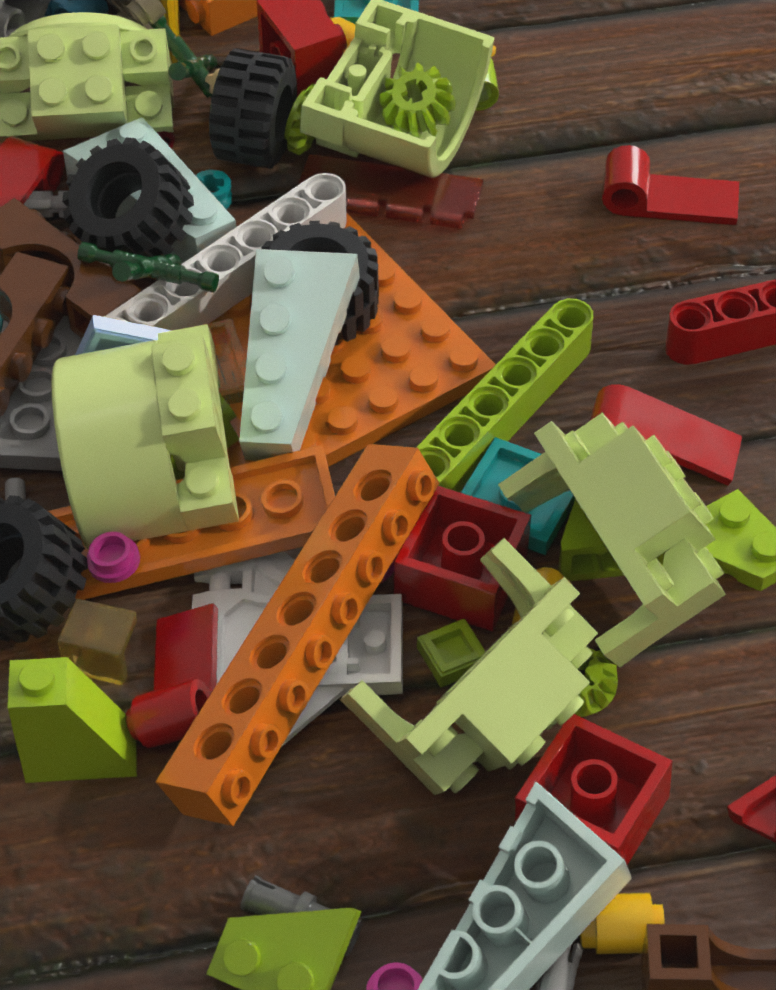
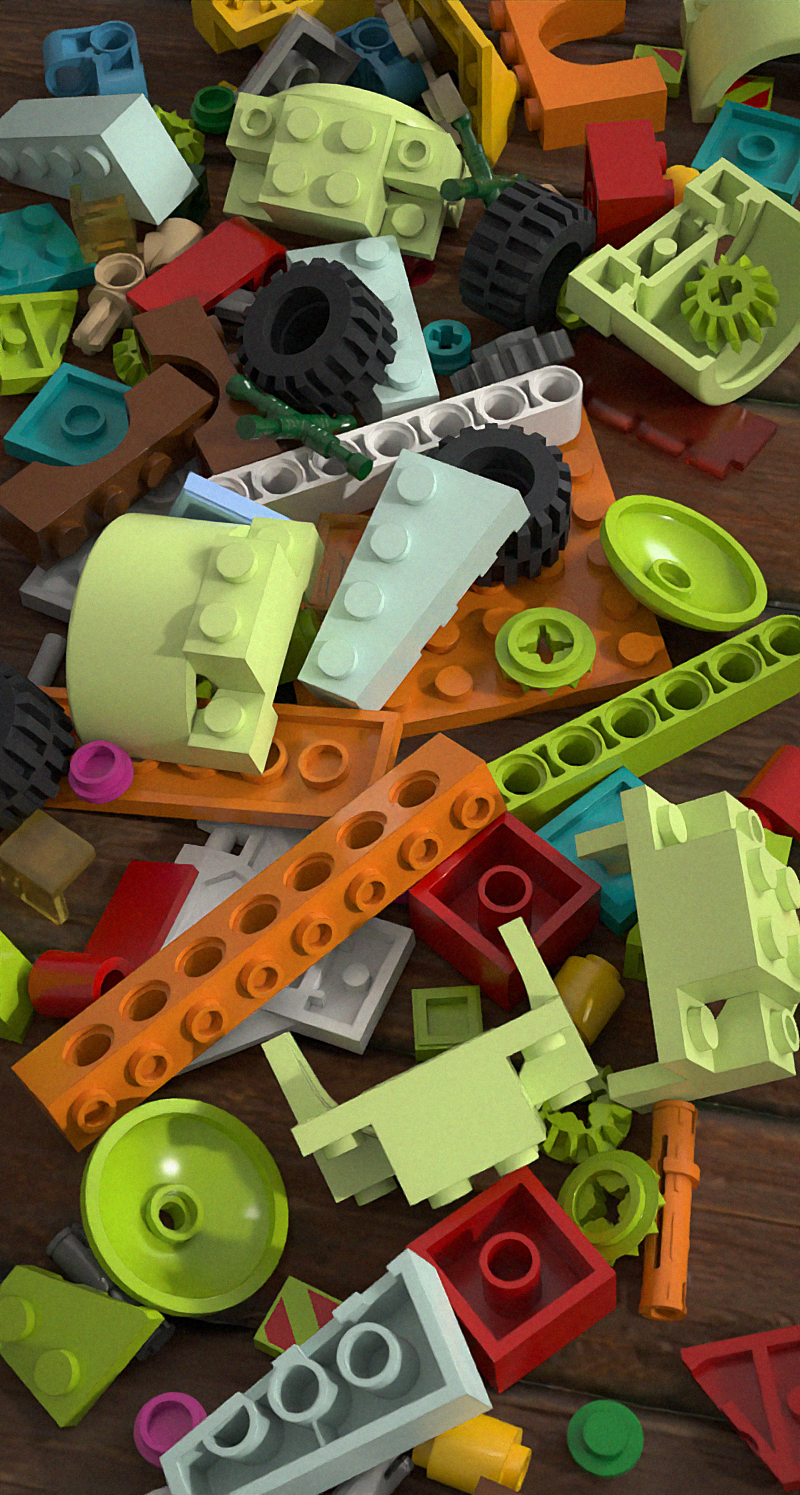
camera: 25 degrees right, 5 degrees up
(275, 181) = (511, 357): none -> dark grey gear
(334, 833) = (213, 1184): none -> lime dish
(409, 361) = (563, 633): none -> lime gear
(450, 887) = (294, 1317): none -> tile
(469, 290) = (682, 564): none -> lime dish
(634, 706) = (628, 1180): none -> lime gear
(657, 680) = (667, 1251): none -> orange pin
(705, 883) = (605, 1439): none -> green plate

